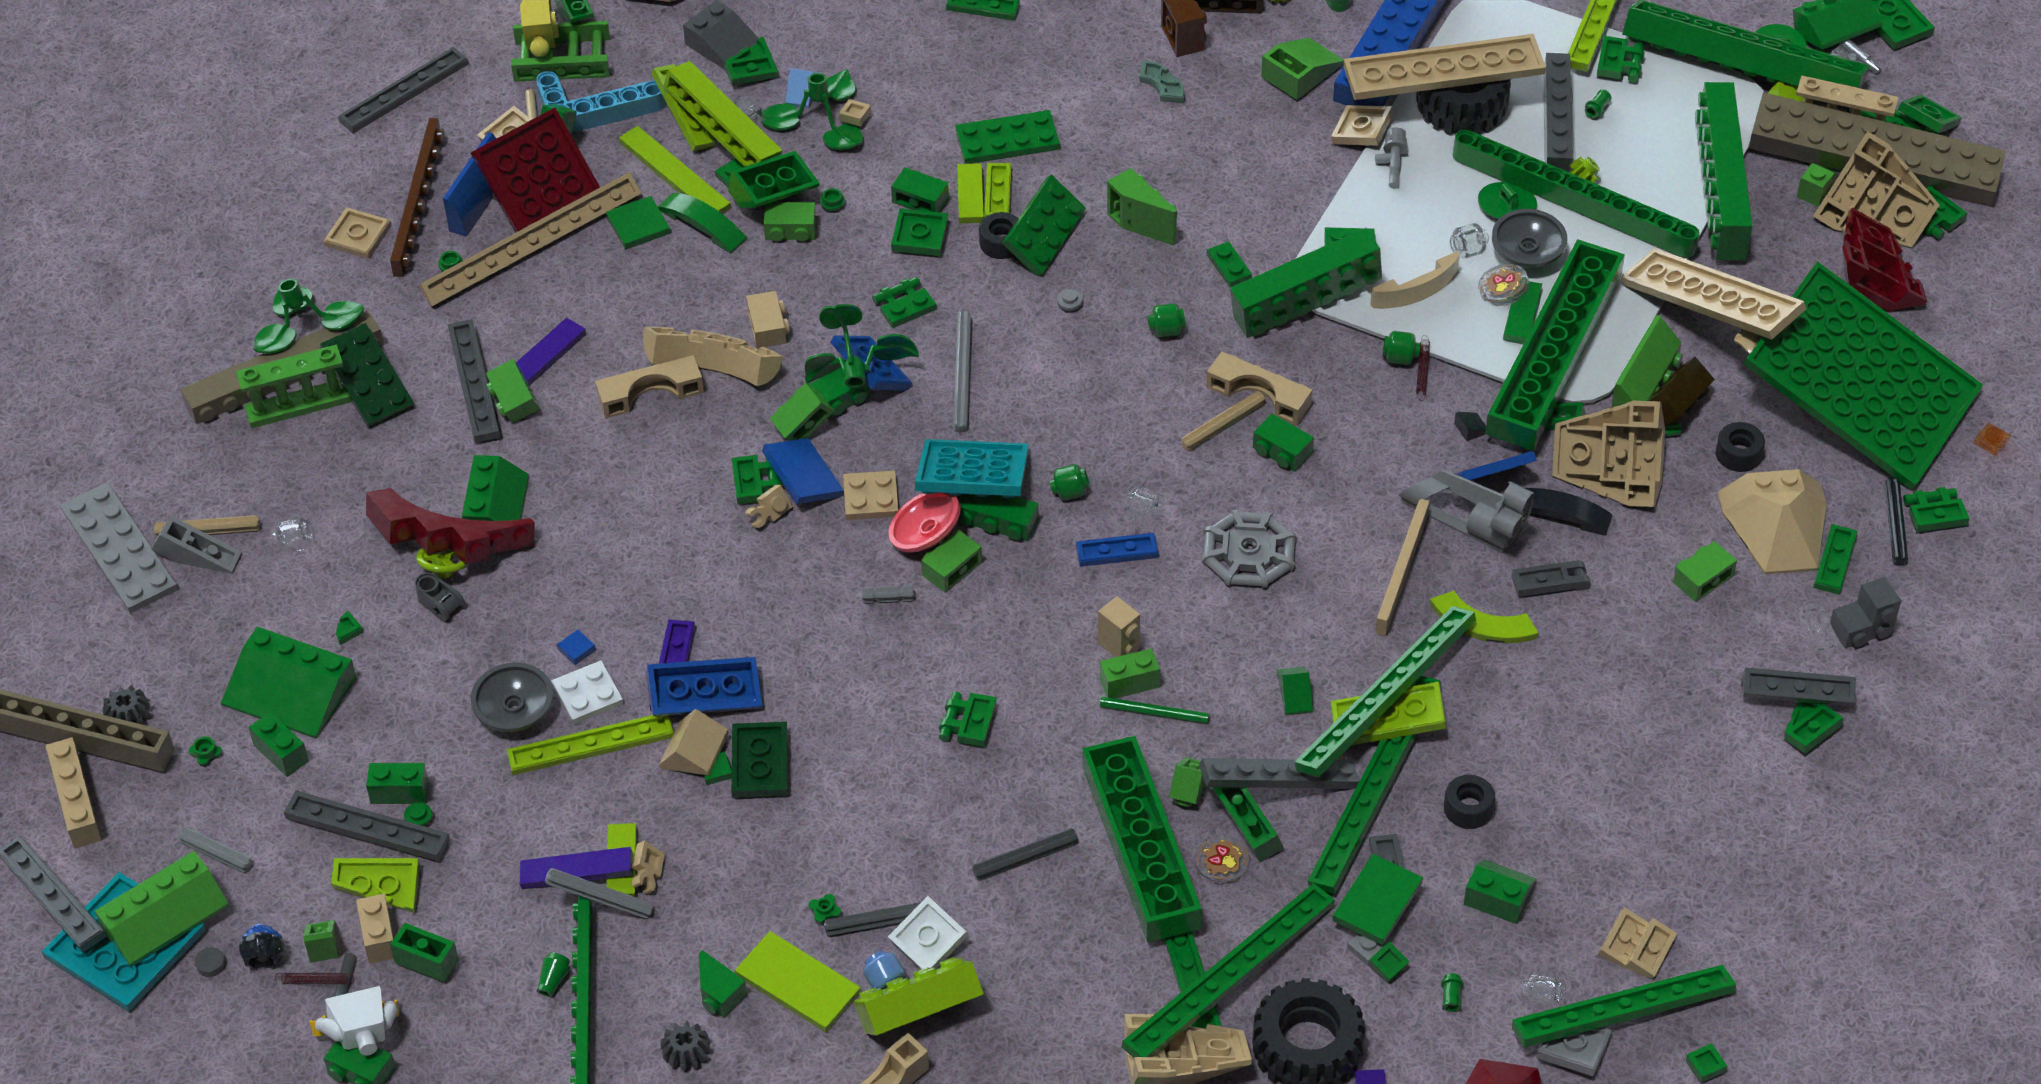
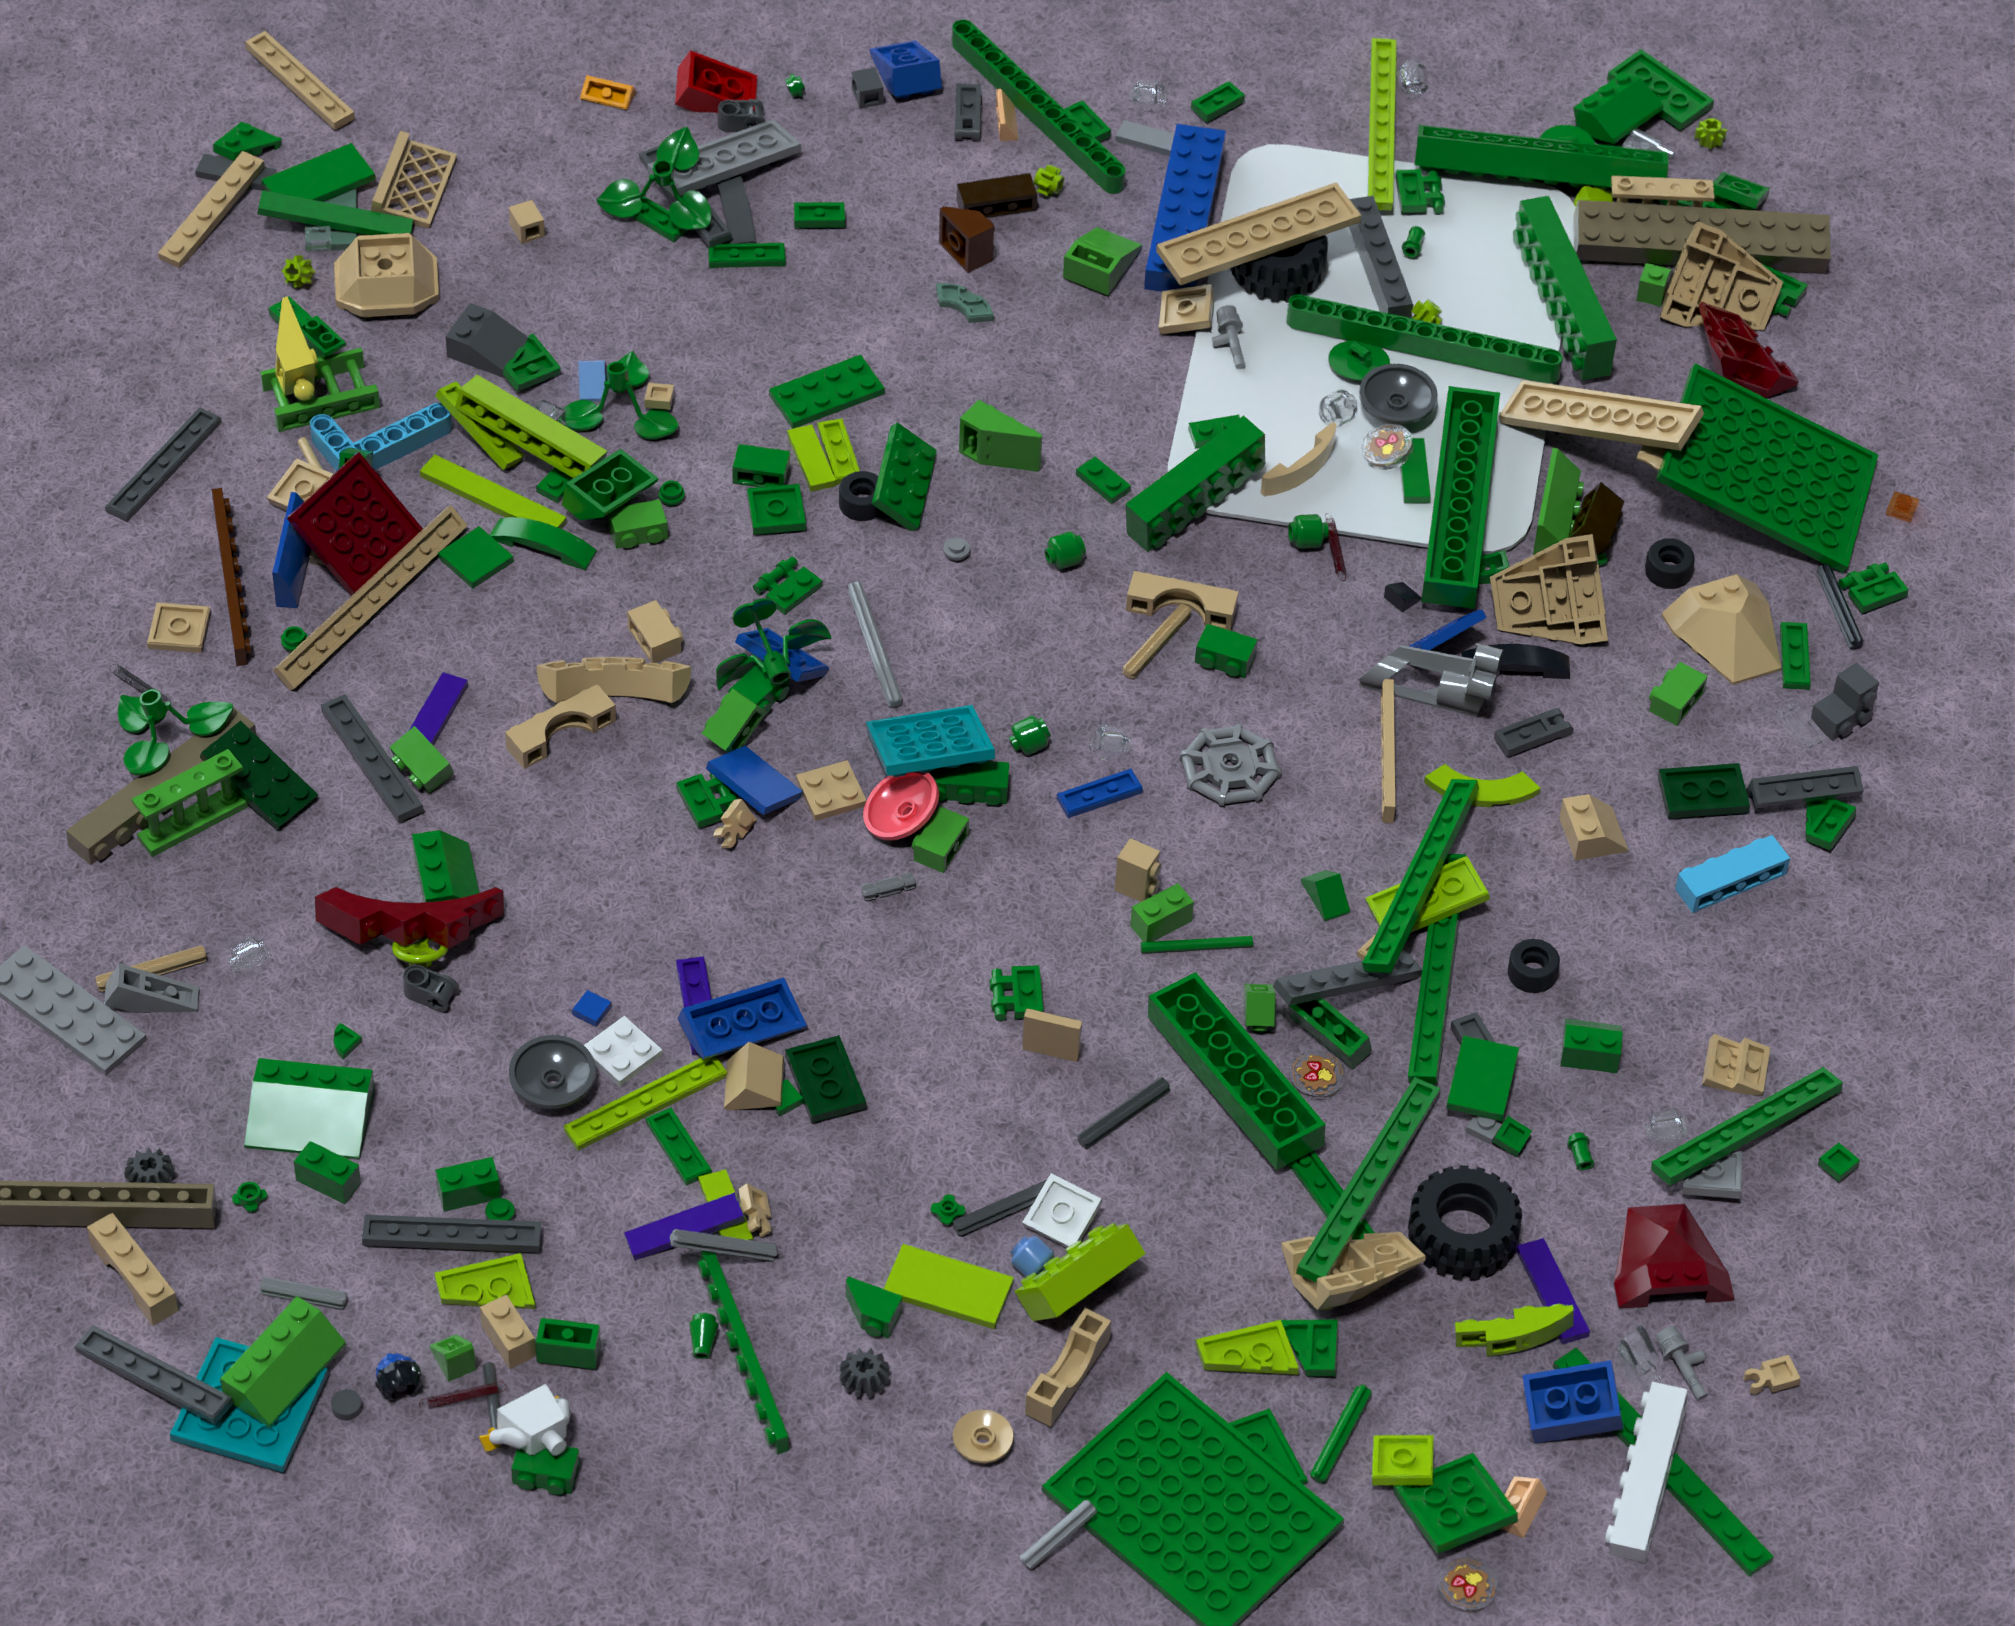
camera: 20 degrees left, 0 degrees up
(304, 272) = (136, 679): none -> dark grey piece
(603, 791) = (678, 1146): none -> green tile
(979, 765) = (1052, 1035): none -> tan tile
(1575, 681) = (1591, 827): none -> tan slope
(1697, 755) = (1732, 873): none -> medium azure brick
(1698, 669) = (1703, 790): none -> dark green plate
(1920, 57) = (1710, 133): none -> lime gear

